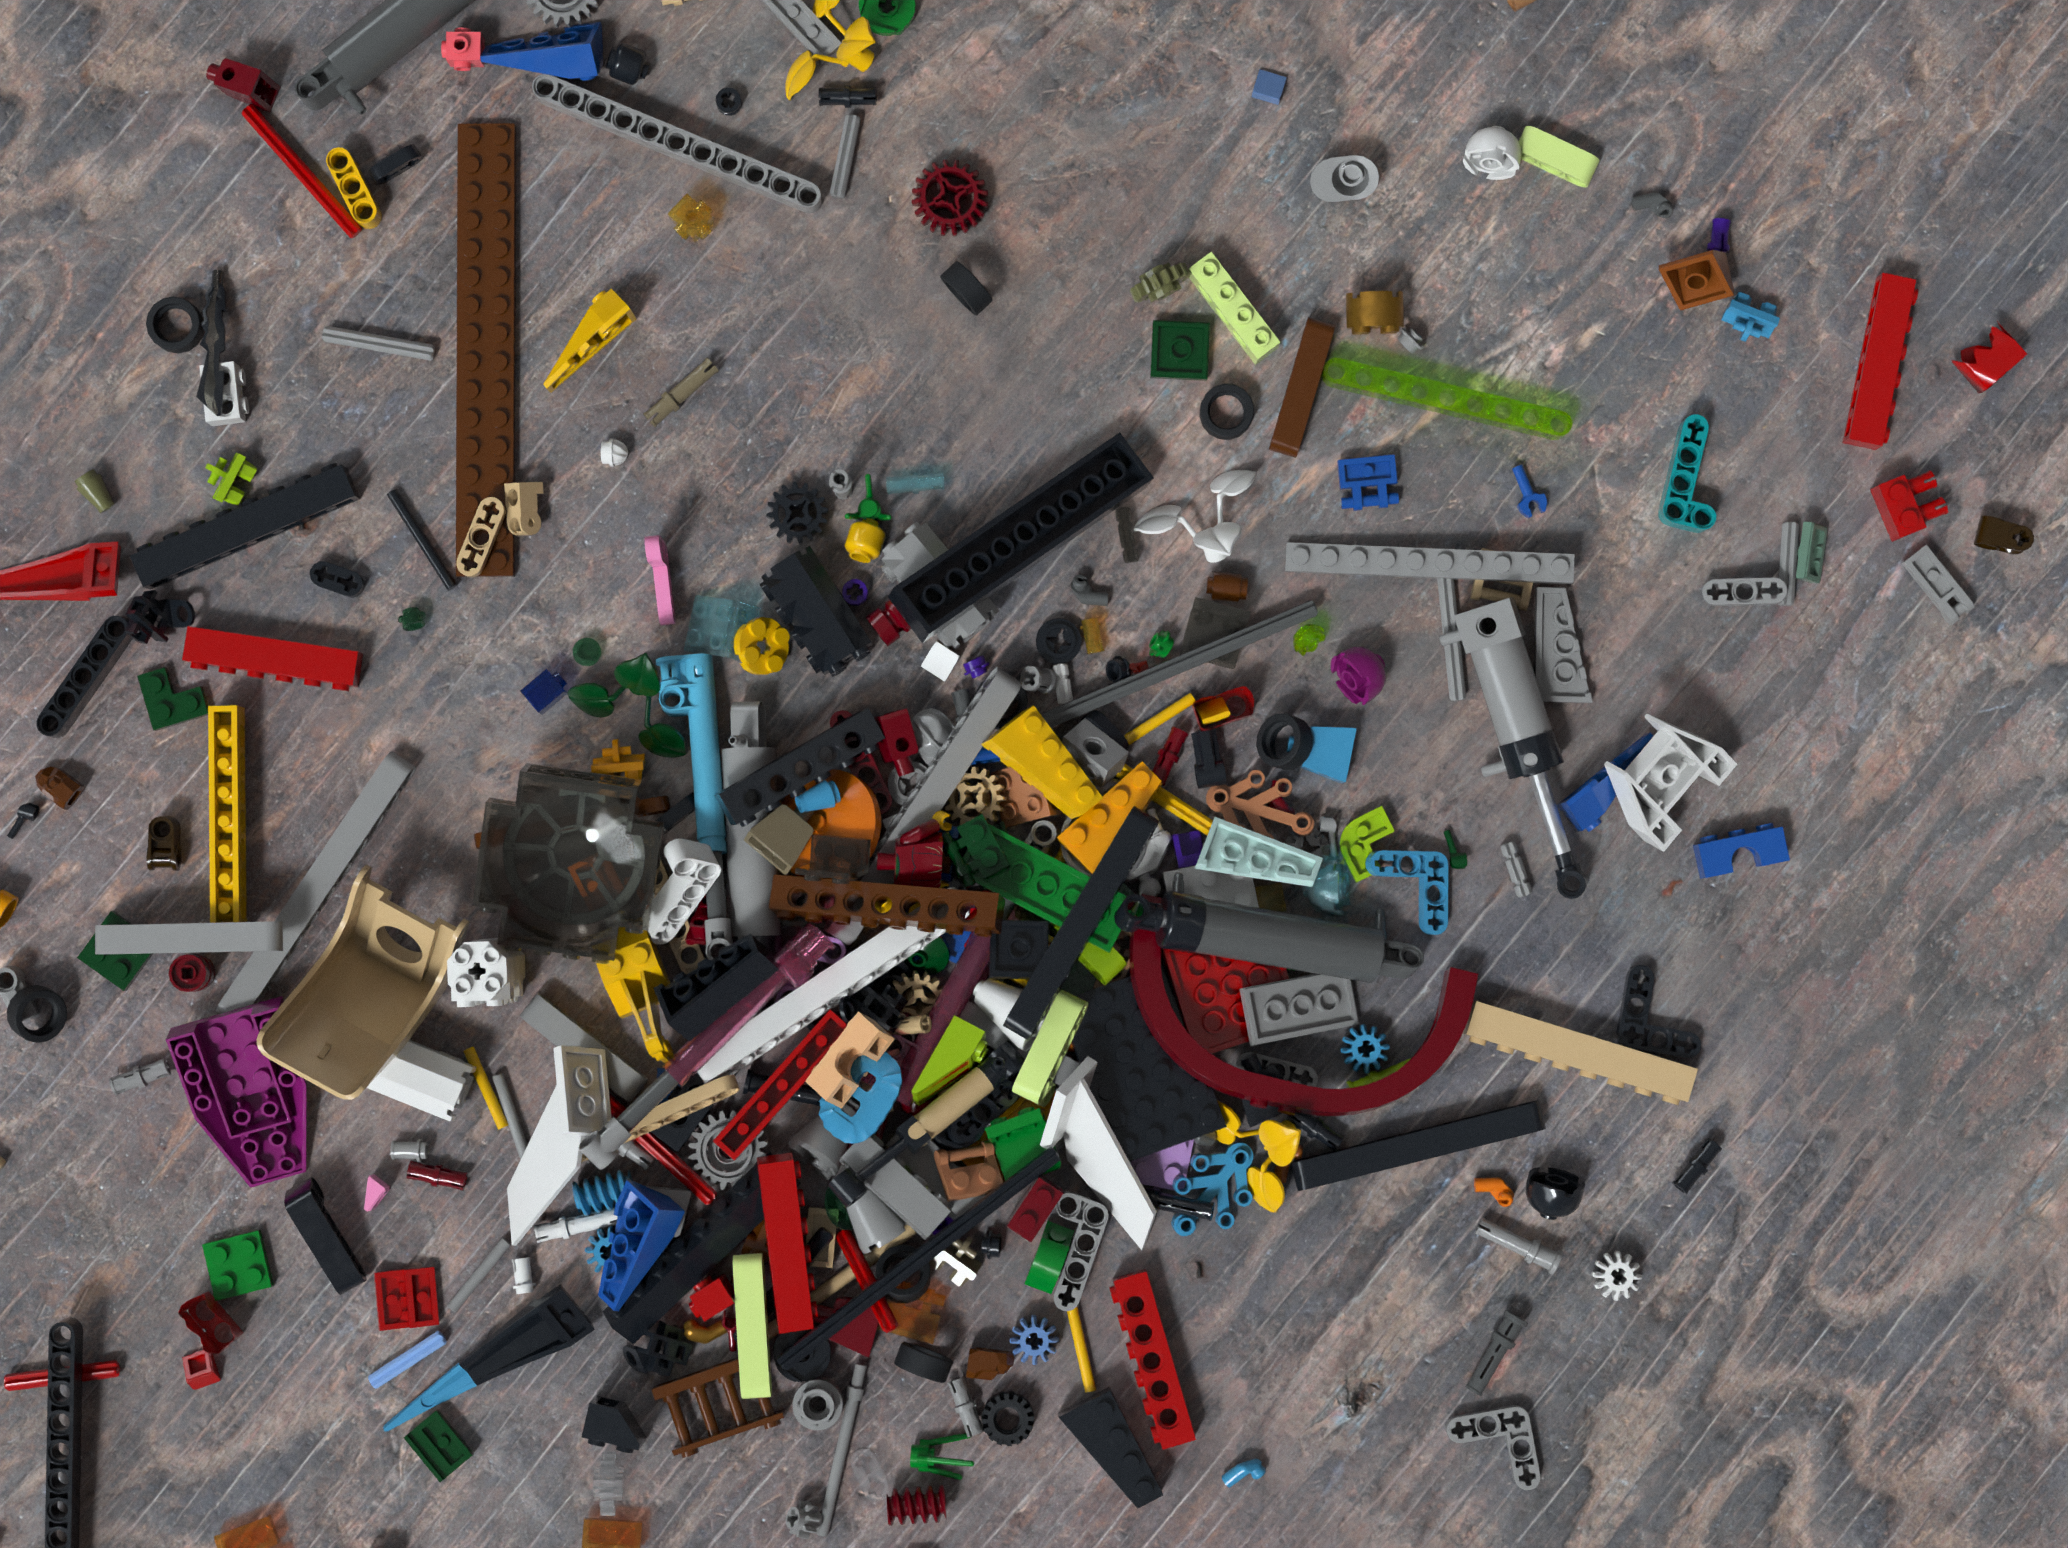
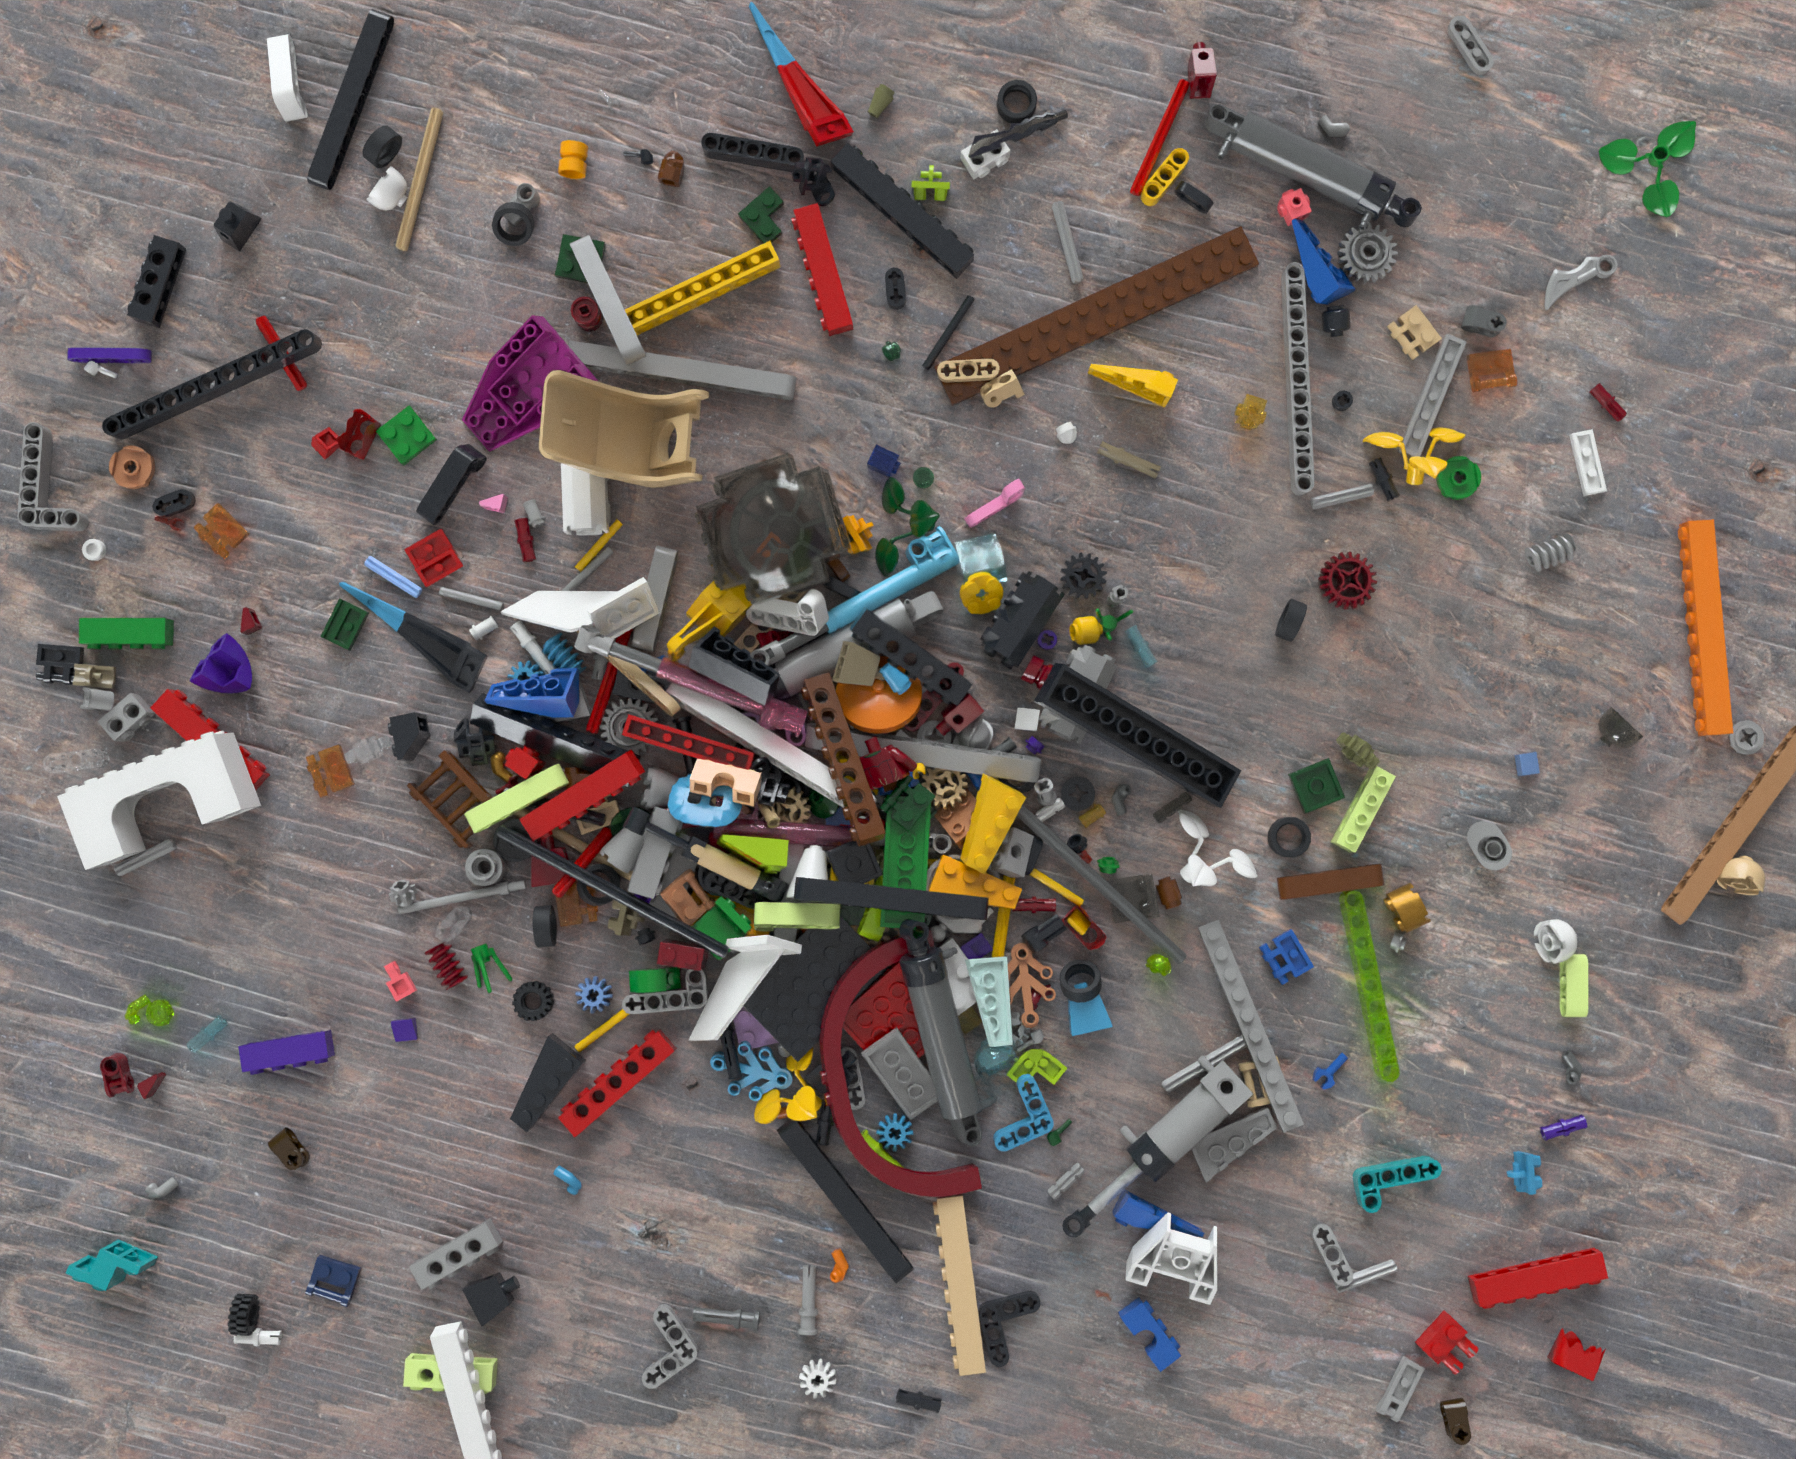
camera: 70 degrees right, 0 degrees up
(140, 1076) = (502, 312): light grey pin -> none
(164, 846) = (663, 256): dark brown piece -> none
(485, 974) = (672, 508): white brick -> none
(836, 858) = (858, 710): clear smoke bracket -> none
(965, 1406) = (528, 968): light grey pin -> none
(987, 1363) = (564, 970): reddish brown rock -> none
(1360, 674) = (1151, 1011): magenta cylinder -> none
(1554, 1192) = (855, 1309): black cylinder -> none
(1698, 279) = (1536, 1124): dark orange slope -> none
(1811, 552) = (1381, 1289): sand green plate -> none

